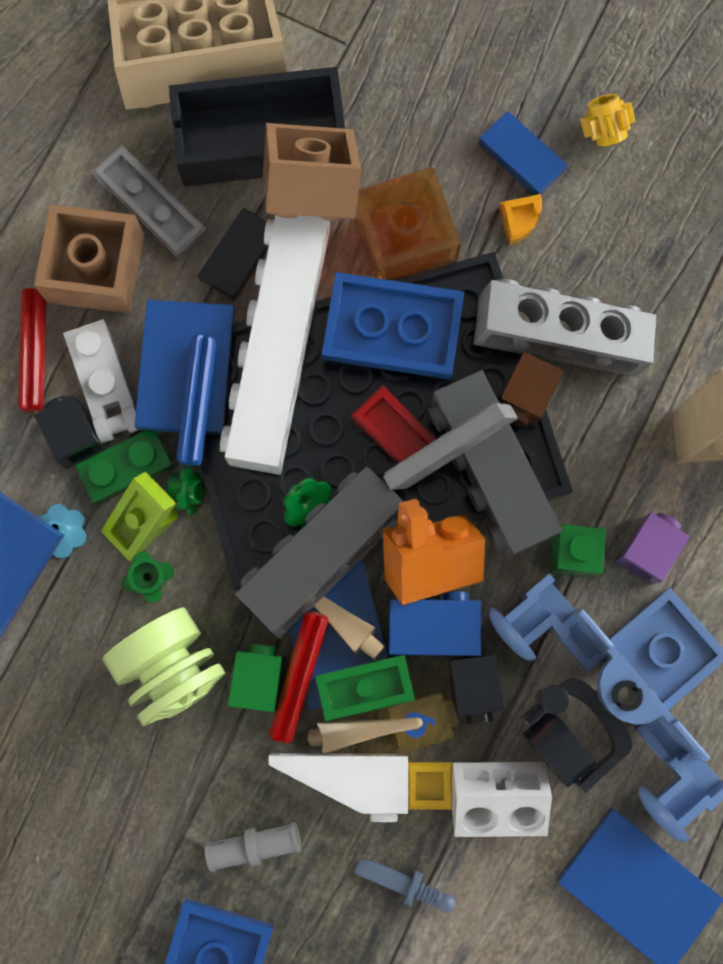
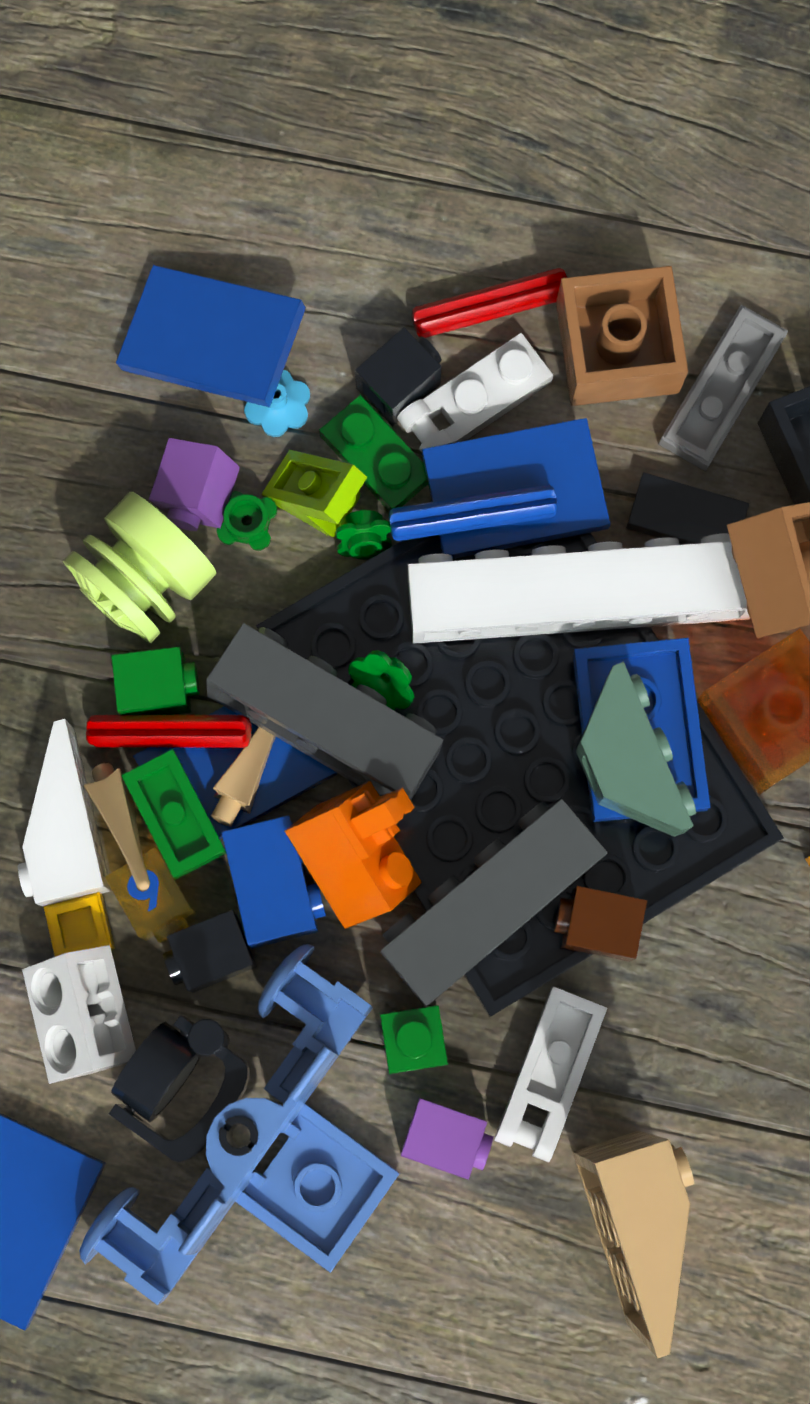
camera: 75 degrees right, 0 degrees up
(108, 609) = (194, 484): none -> medium lavender brick
(392, 426) = (504, 772): red tile -> none
(417, 334) = (630, 759): none -> sand green slope
(450, 446) = (493, 834): light grey tile -> none
(544, 337) = (733, 1038): light grey brick -> none
(621, 460) = (551, 1071): none -> white plate

